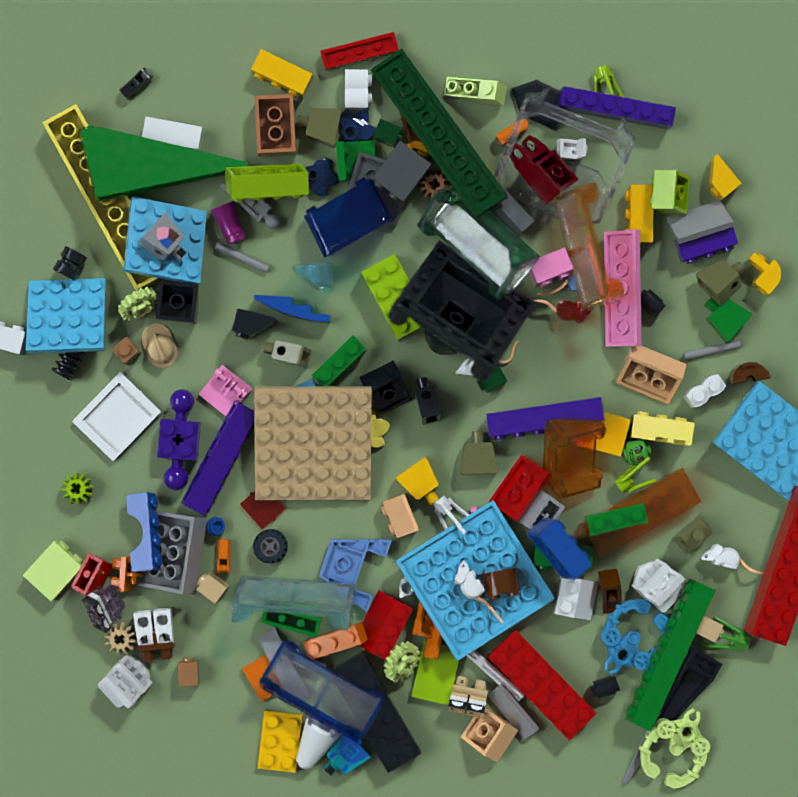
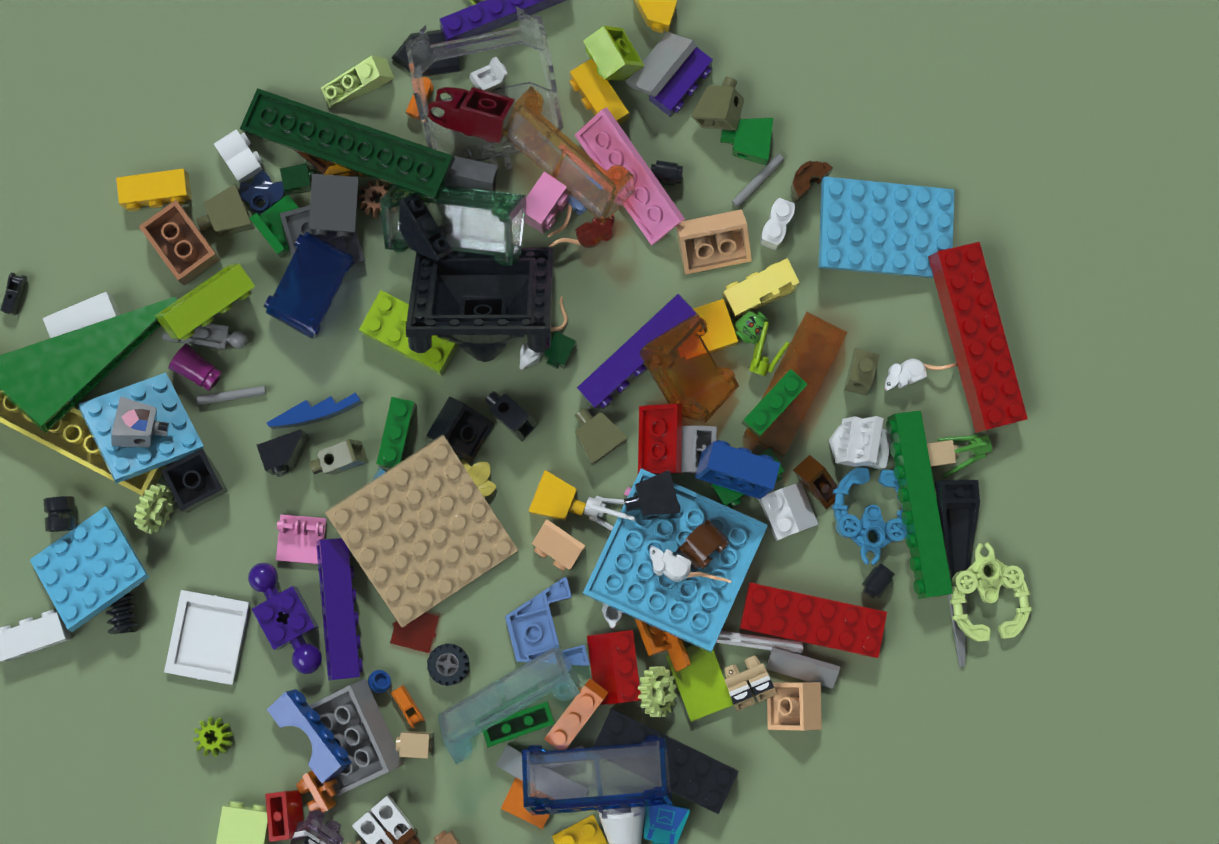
camera: 25 degrees left, 5 degrees down
(126, 350) = (173, 564): medium nougat brick -> none
(159, 345) = (204, 537): tan piece -> none
(317, 275) = (316, 362): clear light blue slope -> none
(323, 176) = (261, 263): dark blue plate -> none
(359, 51) = (217, 118): red plate -> none
(451, 231) = (421, 229): none -> black slope
(489, 528) = (655, 498): none -> black torso
(769, 275) = (763, 70): yellow brick -> none

